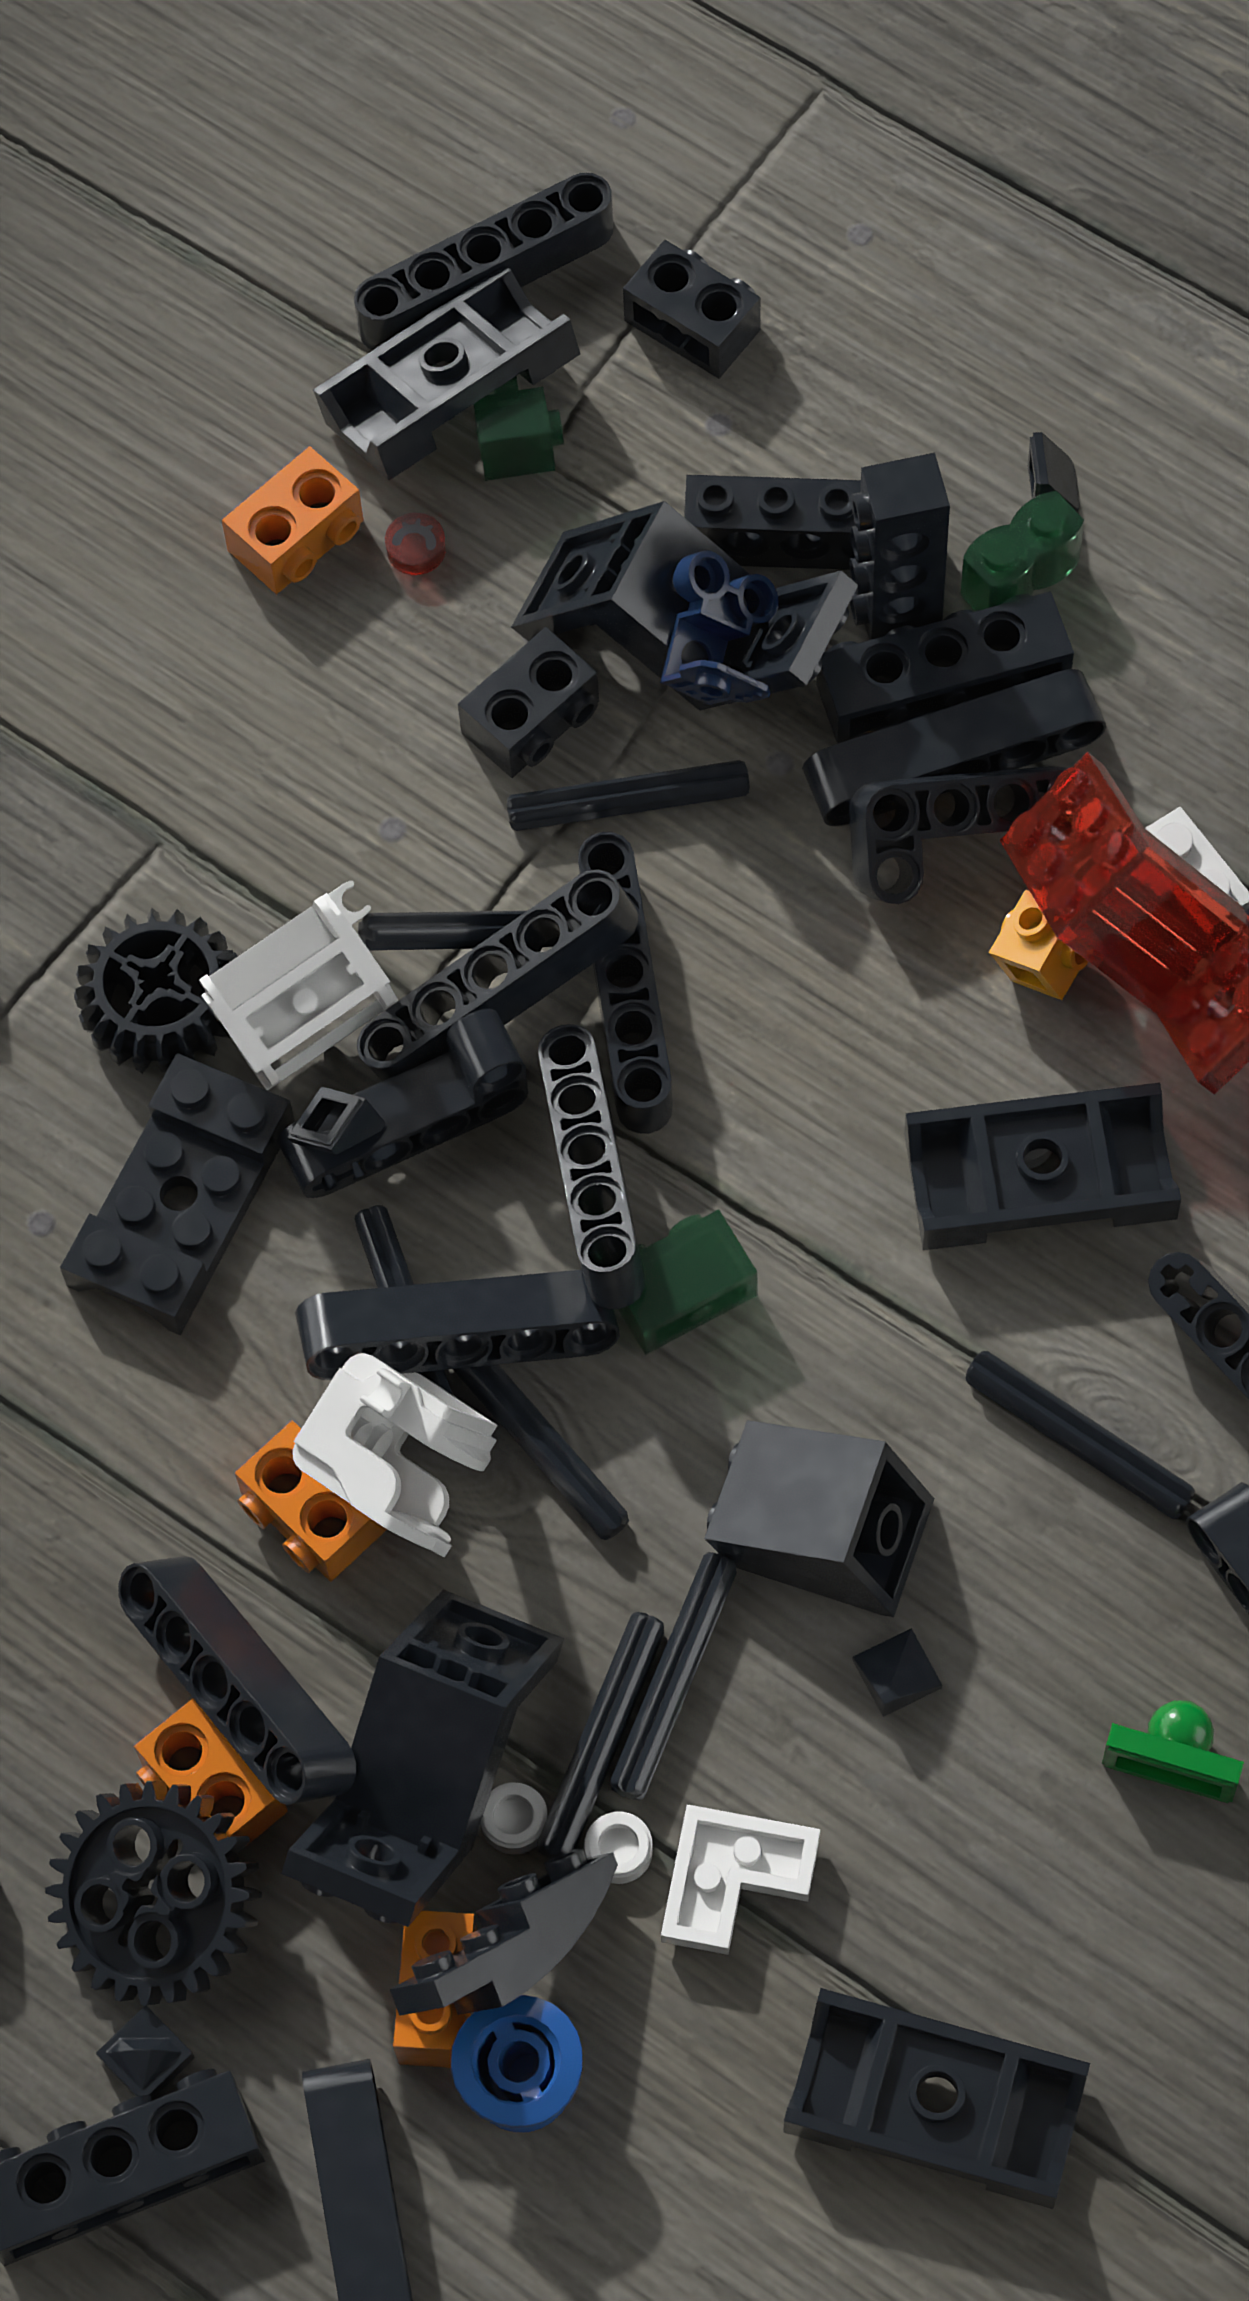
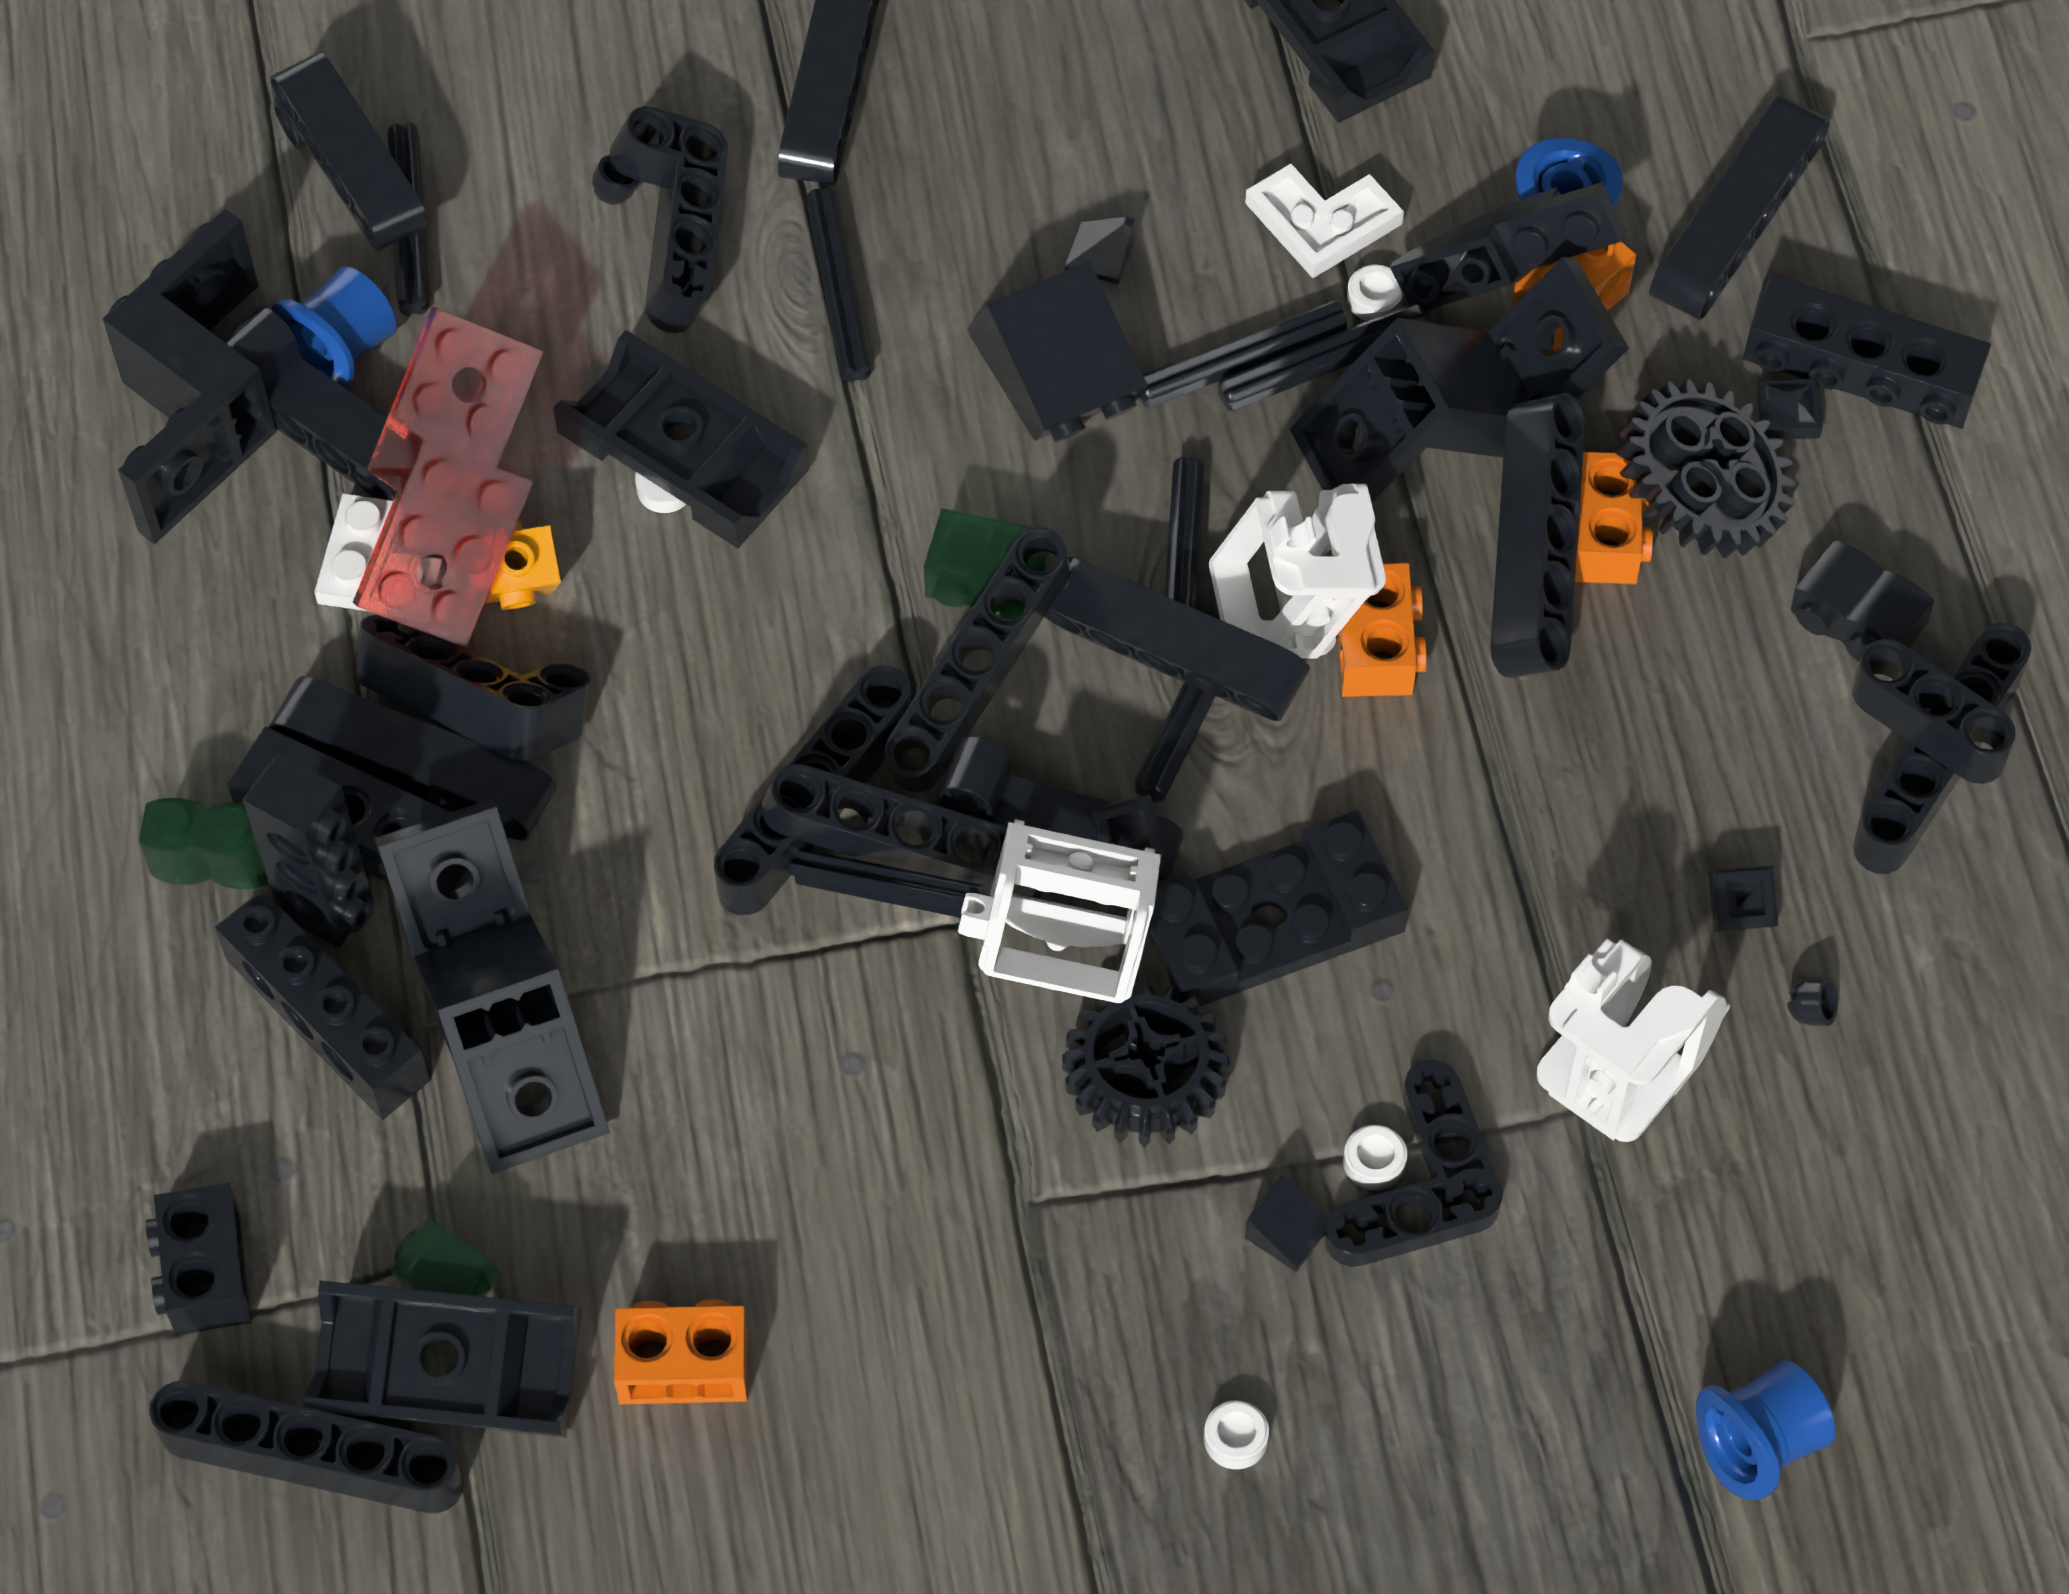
camera: 140 degrees left, 5 degrees down
(415, 543) = (607, 1265): clear red tile -> none
(518, 695) = (662, 1063): black brick -> none
(628, 795) = (666, 930): black axle -> none
(713, 619) = (477, 930): dark blue piece -> none
(1051, 470) = (115, 899): black slope -> none
(1175, 1752) = (988, 68): green tile -> none

